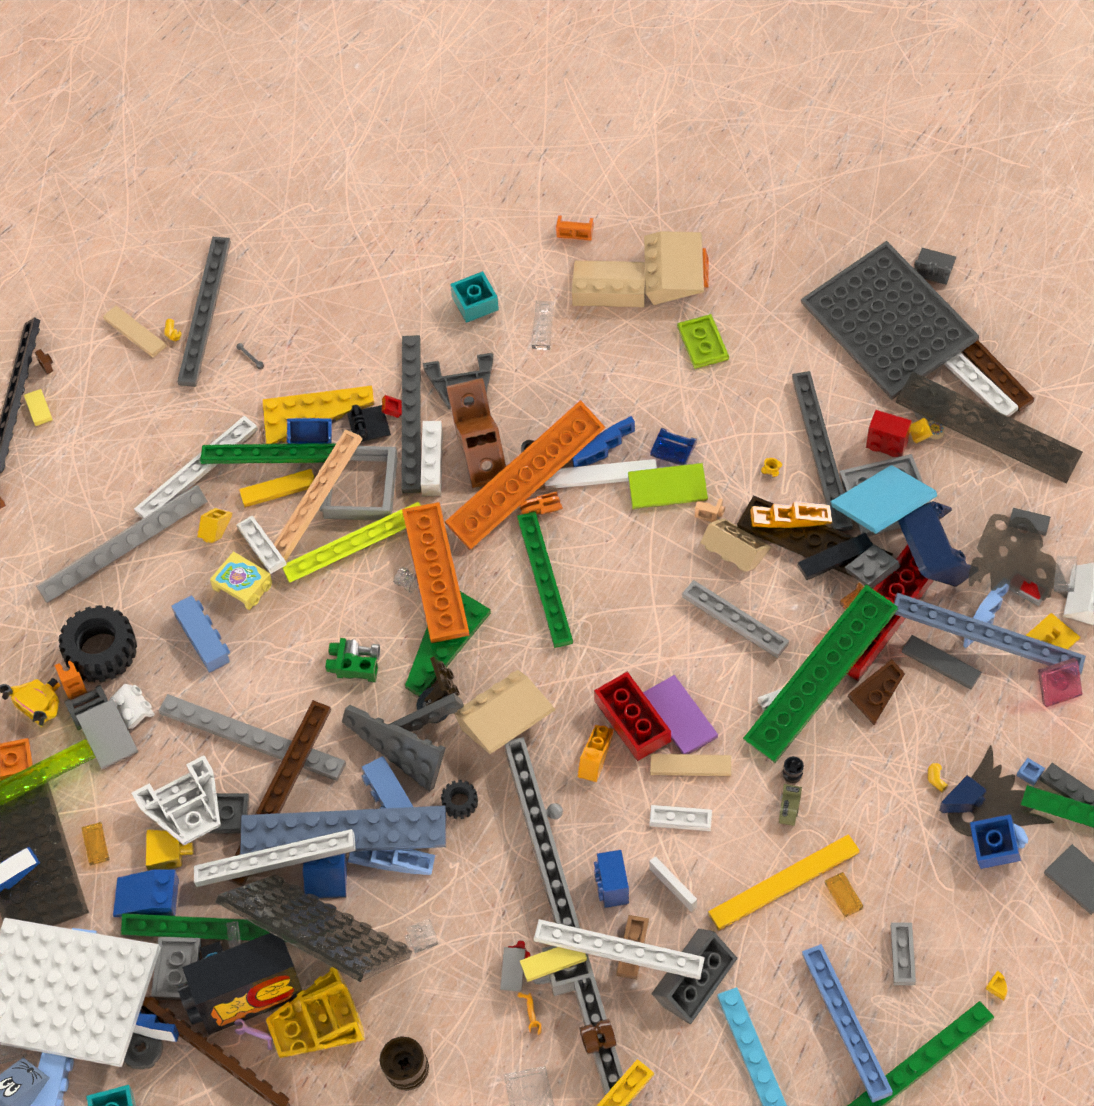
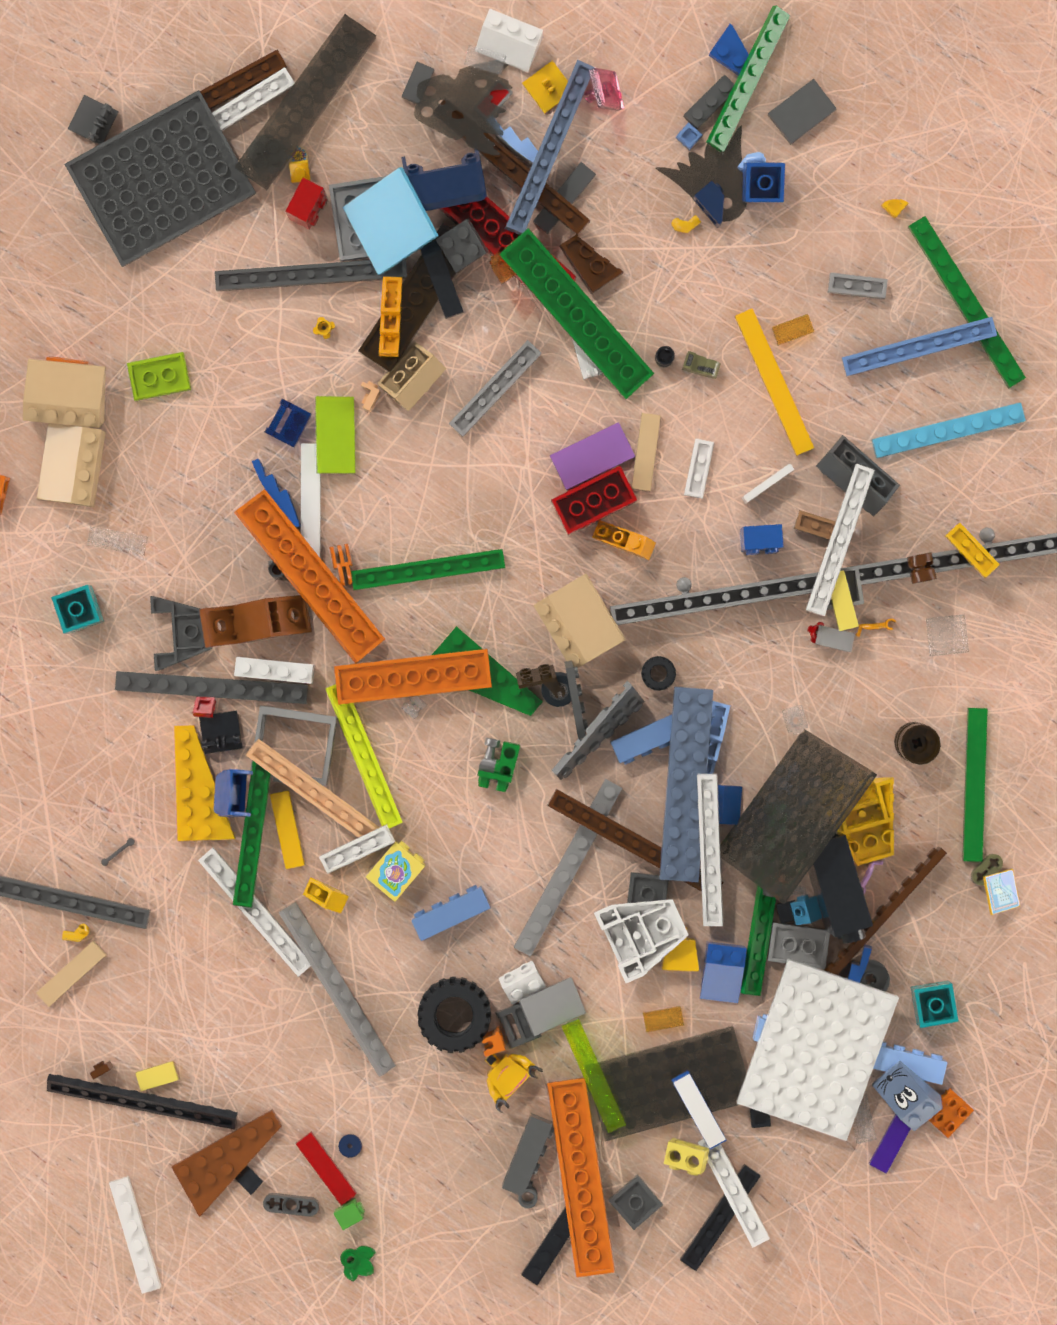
camera: 85 degrees left, 30 degrees up
(939, 639) = (518, 172): none -> reddish brown plate

